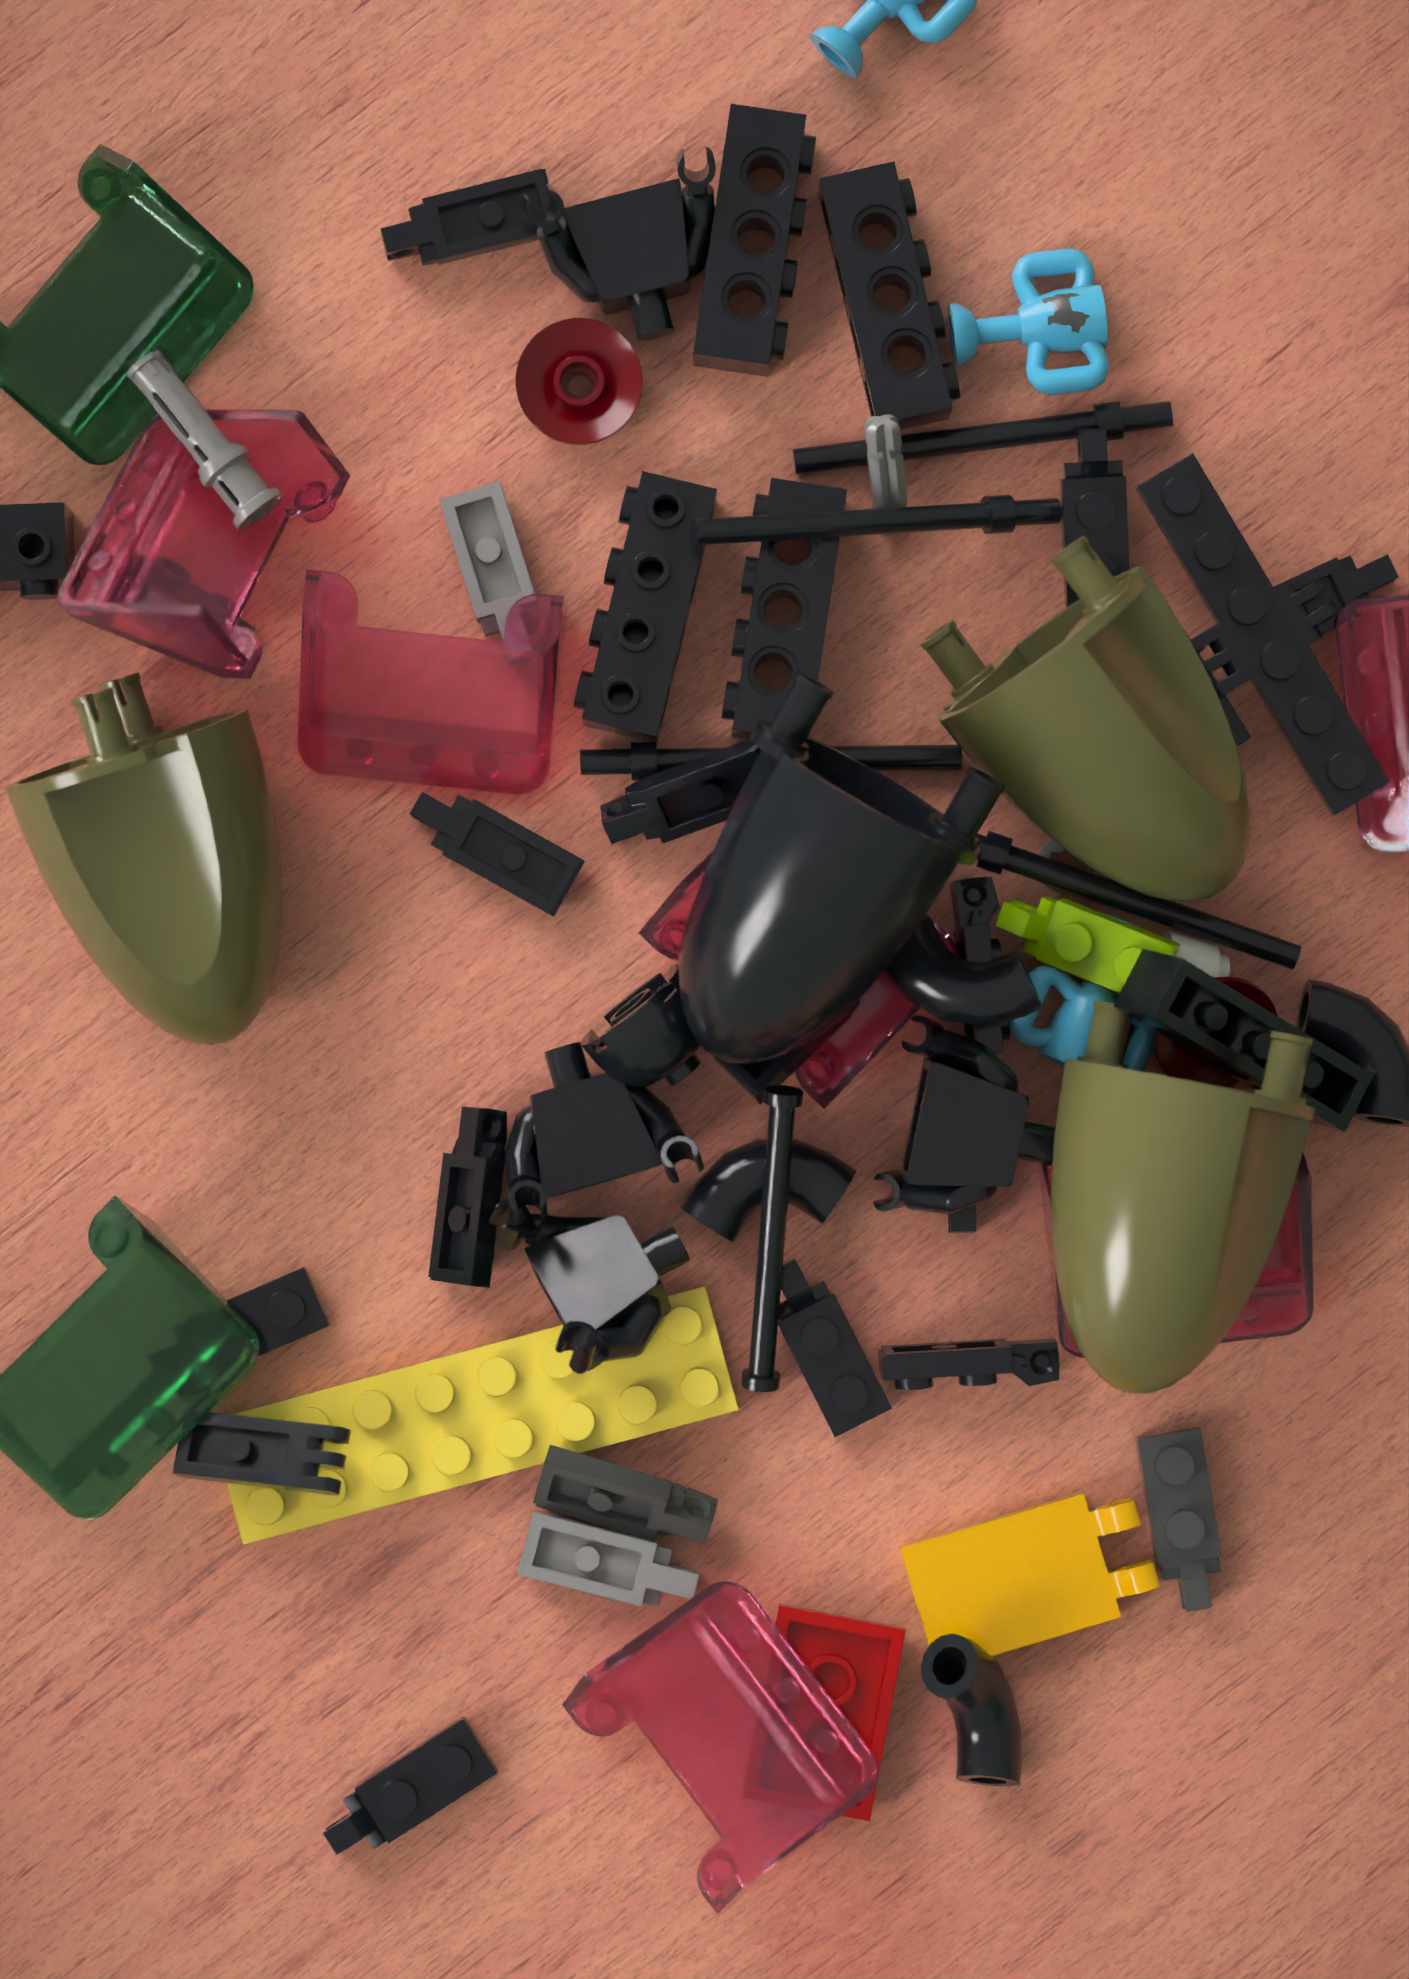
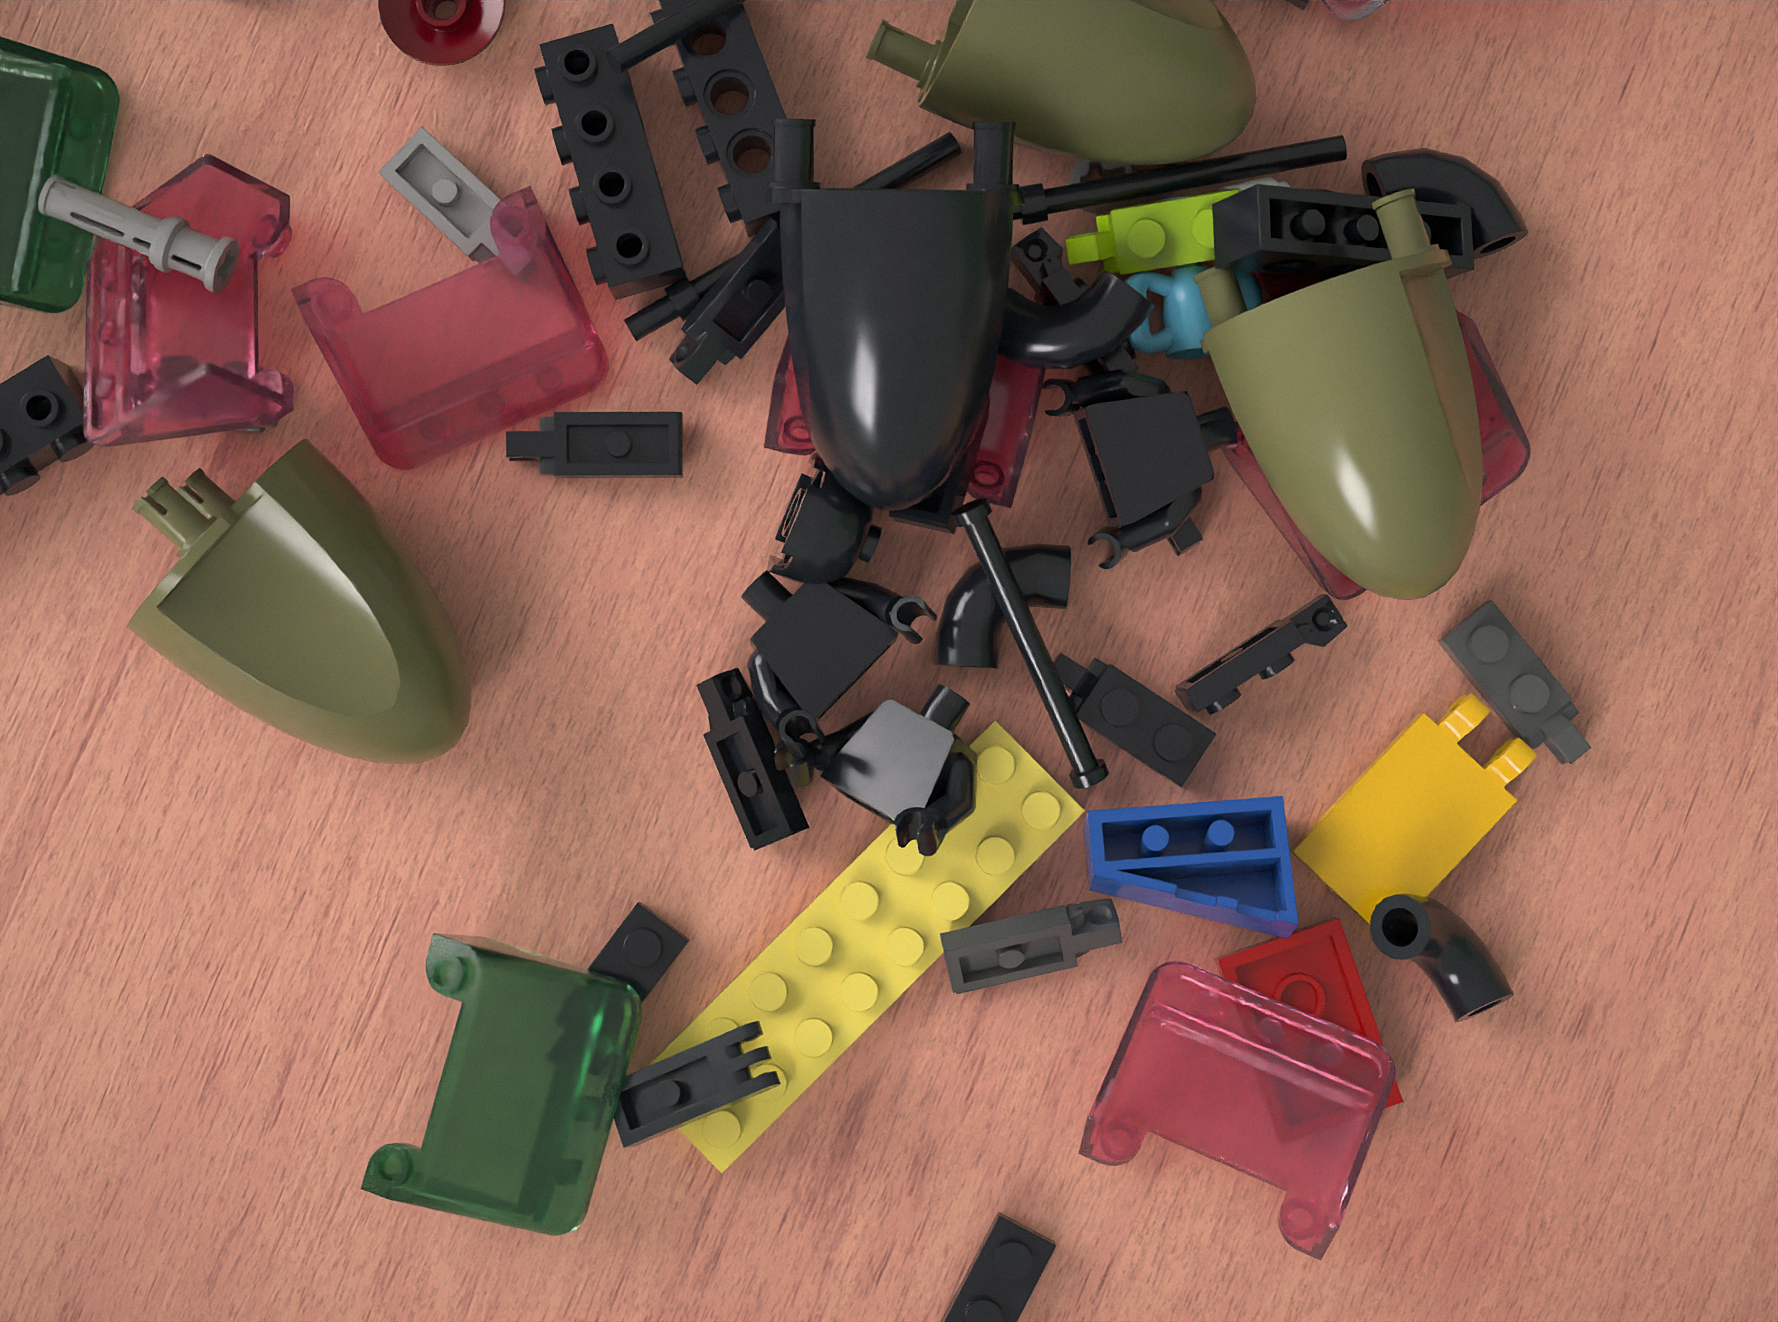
camera: 30 degrees left, 0 degrees up
(602, 1562) = (1043, 1009): light grey hinge -> none
(809, 1508) = (1198, 859): none -> blue wedge

